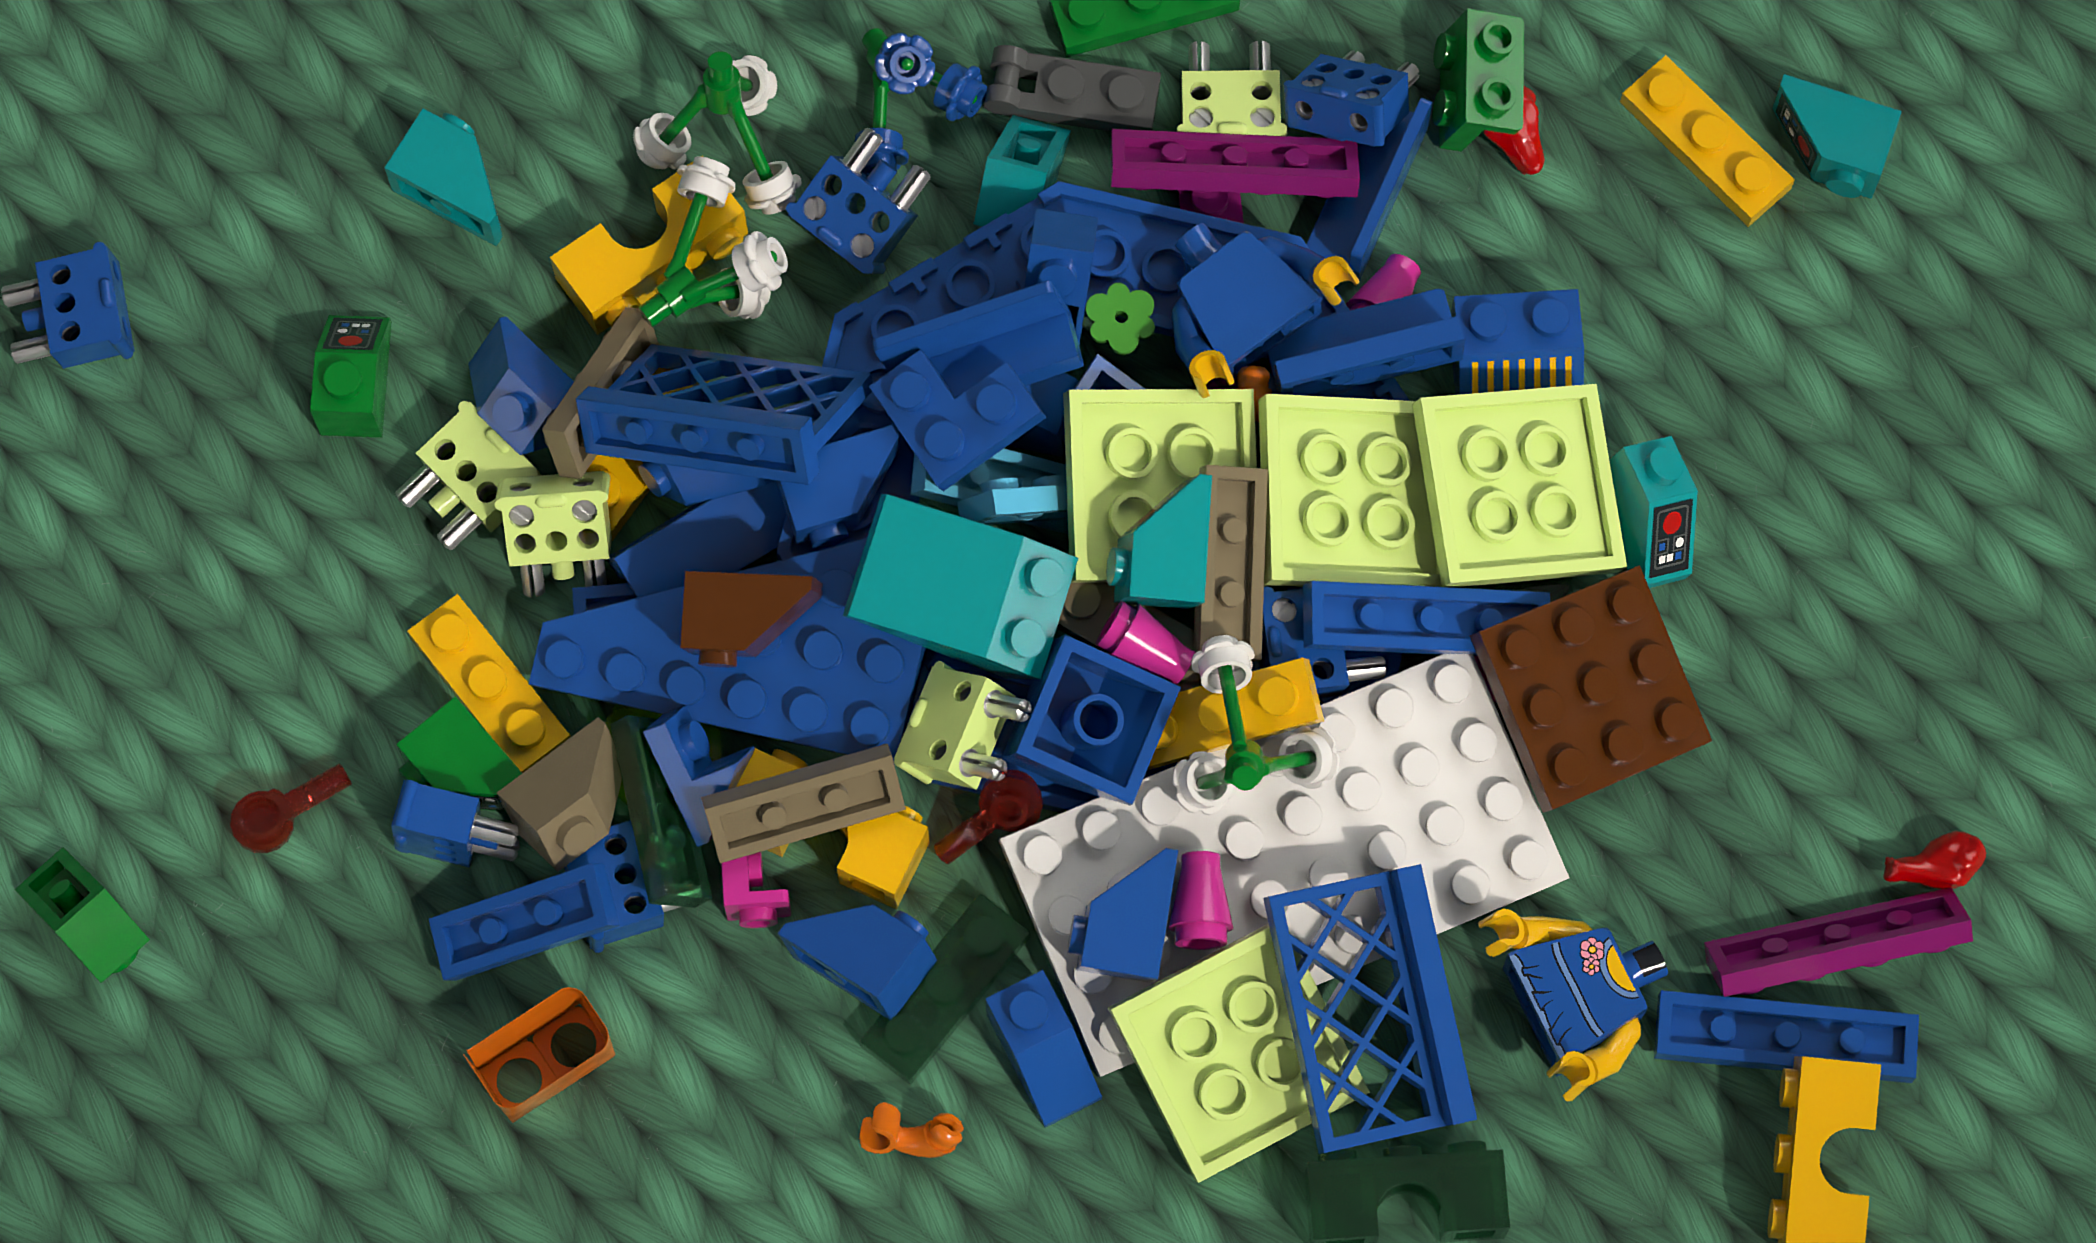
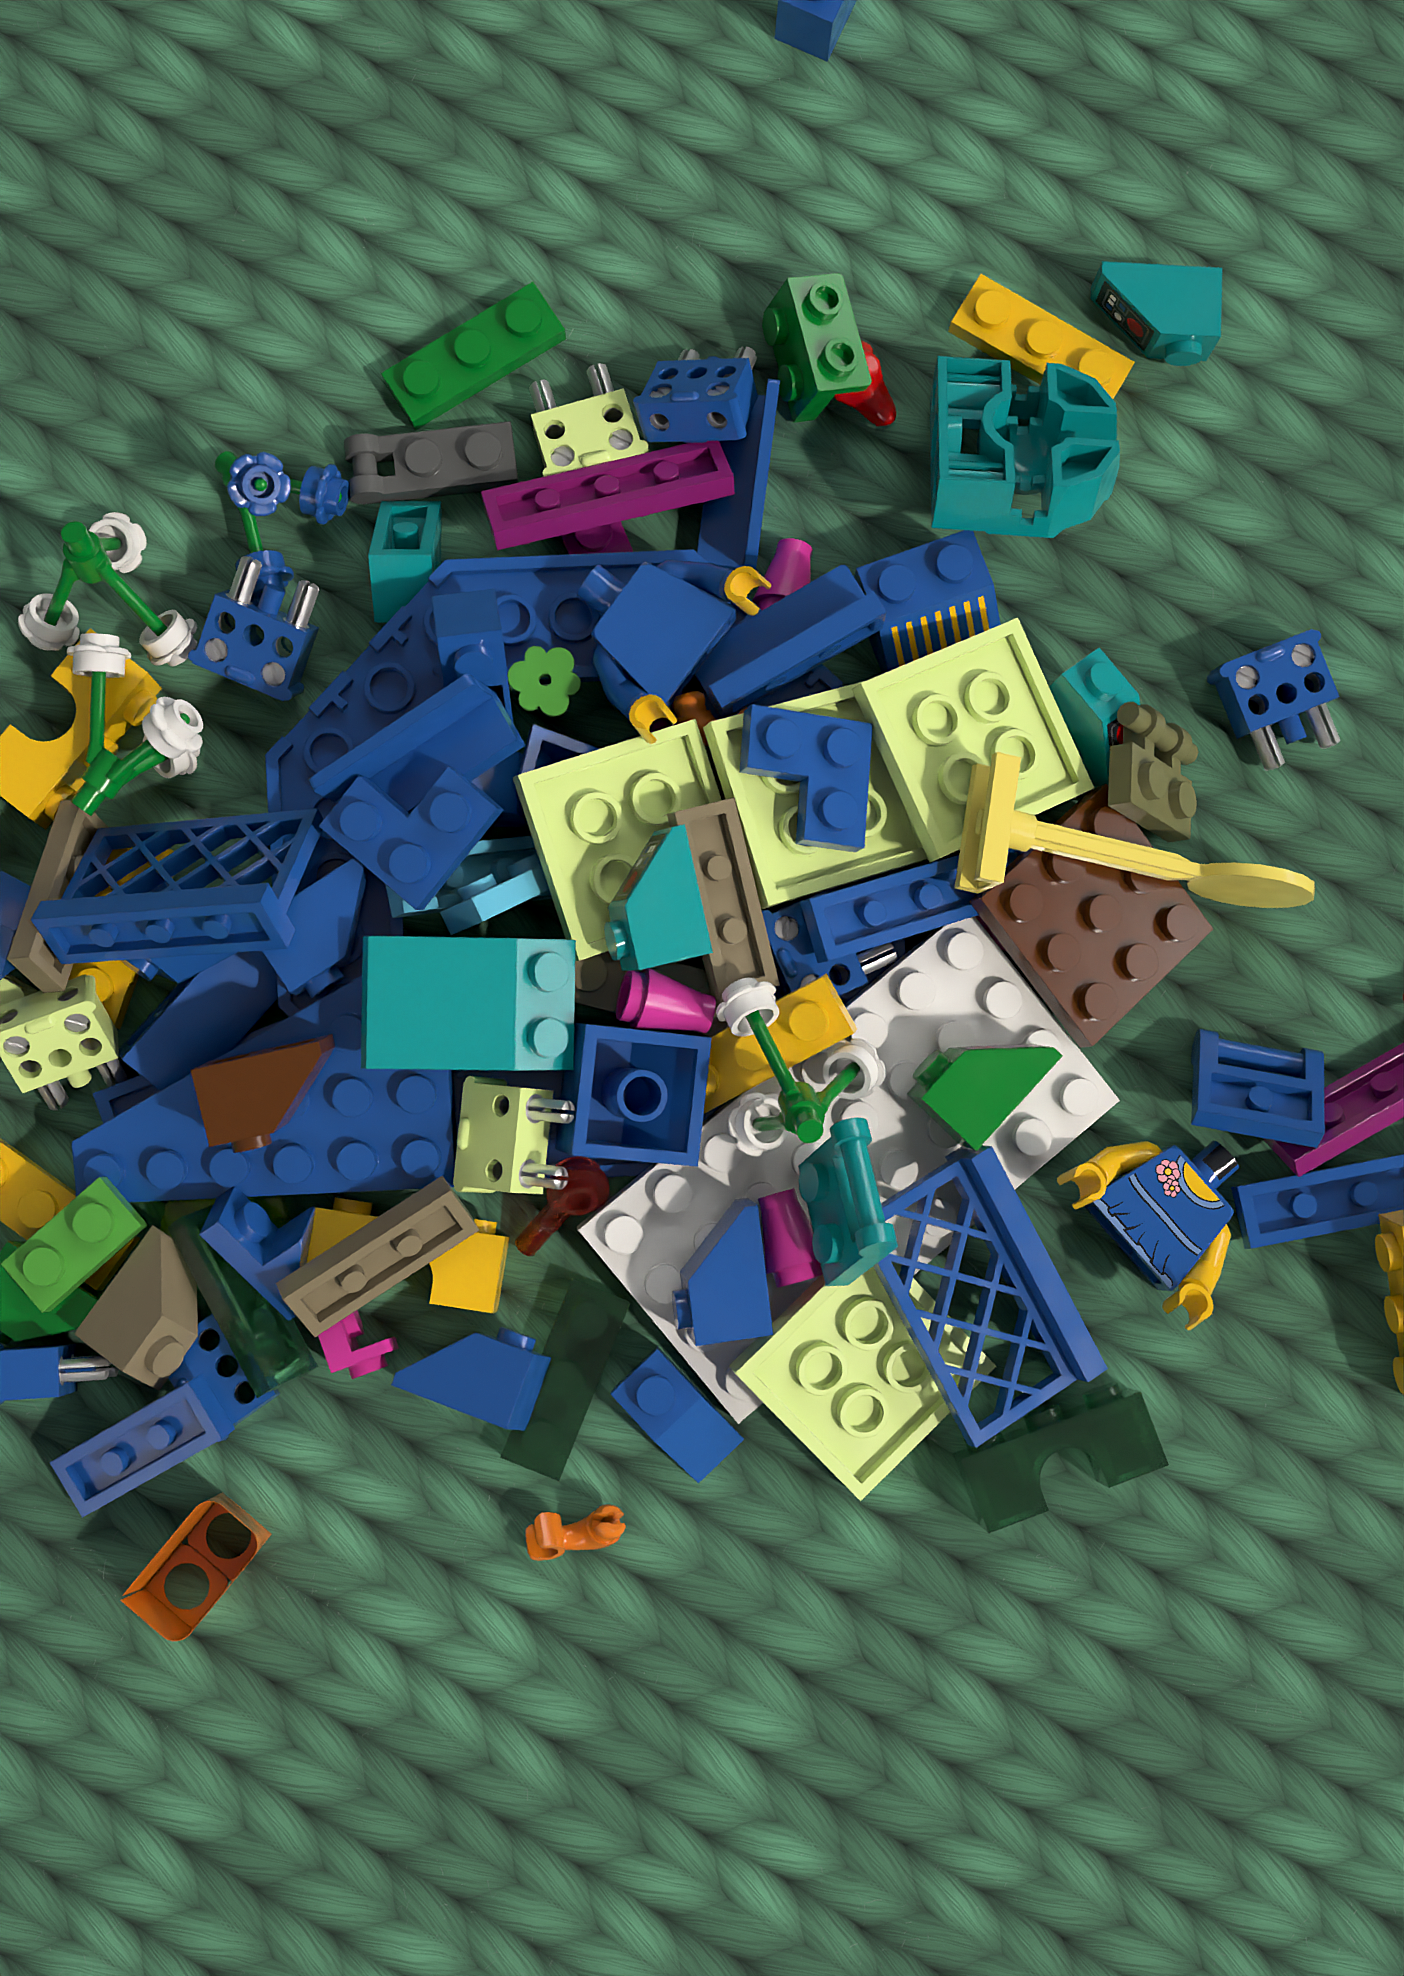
camera: 25 degrees left, 10 degrees up
(519, 714) = (74, 1244): none -> bright green plate
(1262, 872) = (845, 1204): none -> teal plate
(1368, 462) = (826, 758): none -> blue plate
(1425, 808) = (979, 1086): none -> green slope
(1685, 585) = (1147, 773): none -> olive plate
(1689, 247) = (1062, 453): none -> teal connector
(1706, 902) = (1257, 1100): none -> blue plate
(1729, 690) = (995, 826): none -> light yellow piece
(1850, 509) = (1280, 669): none -> blue piece

